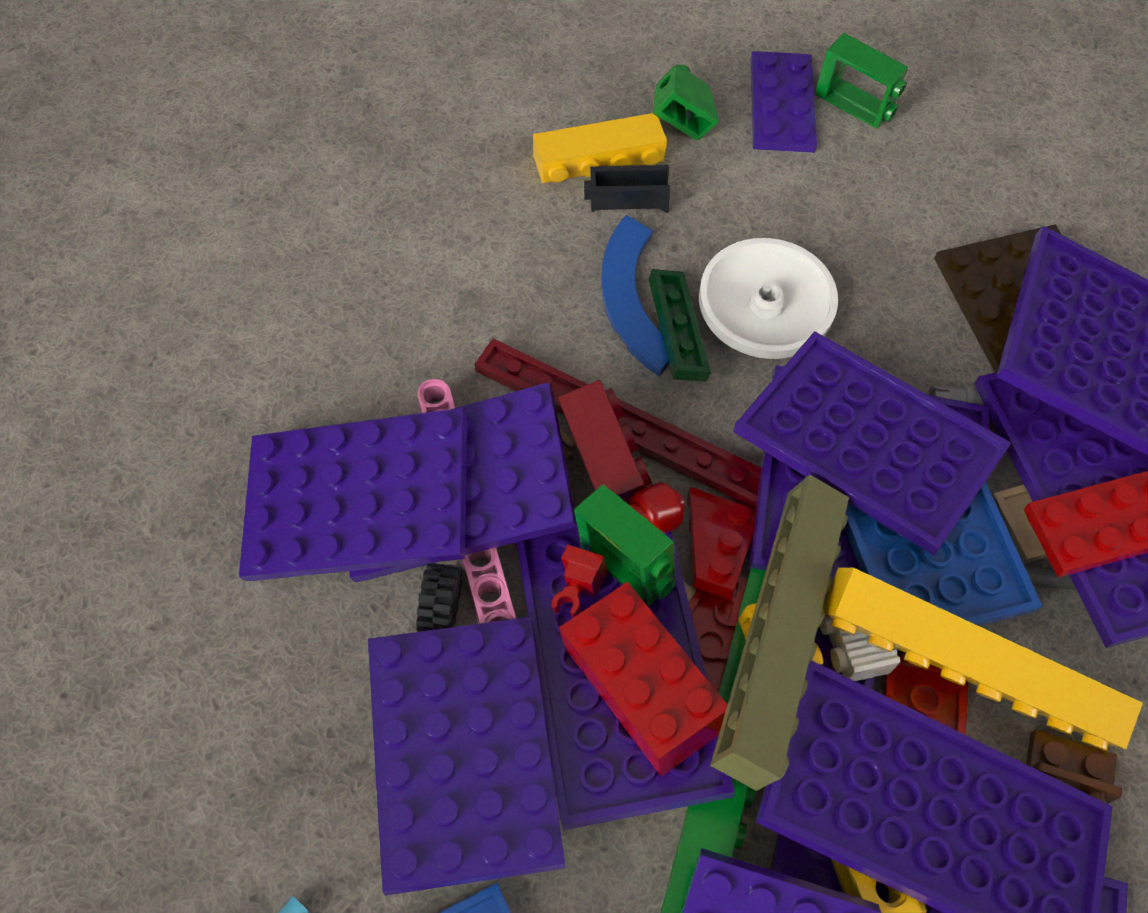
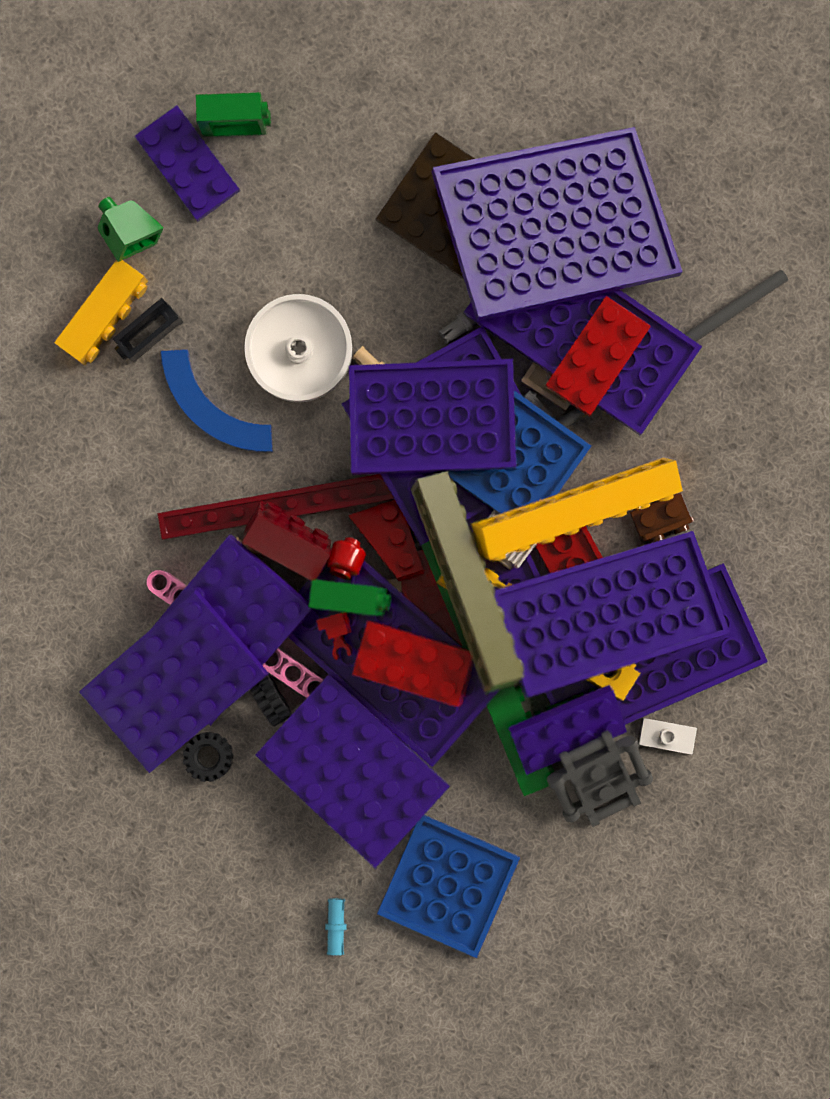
camera: 30 degrees left, 25 degrees up
(310, 589) = (196, 768): none -> black tyre
(679, 326) = (259, 412): dark green plate -> none

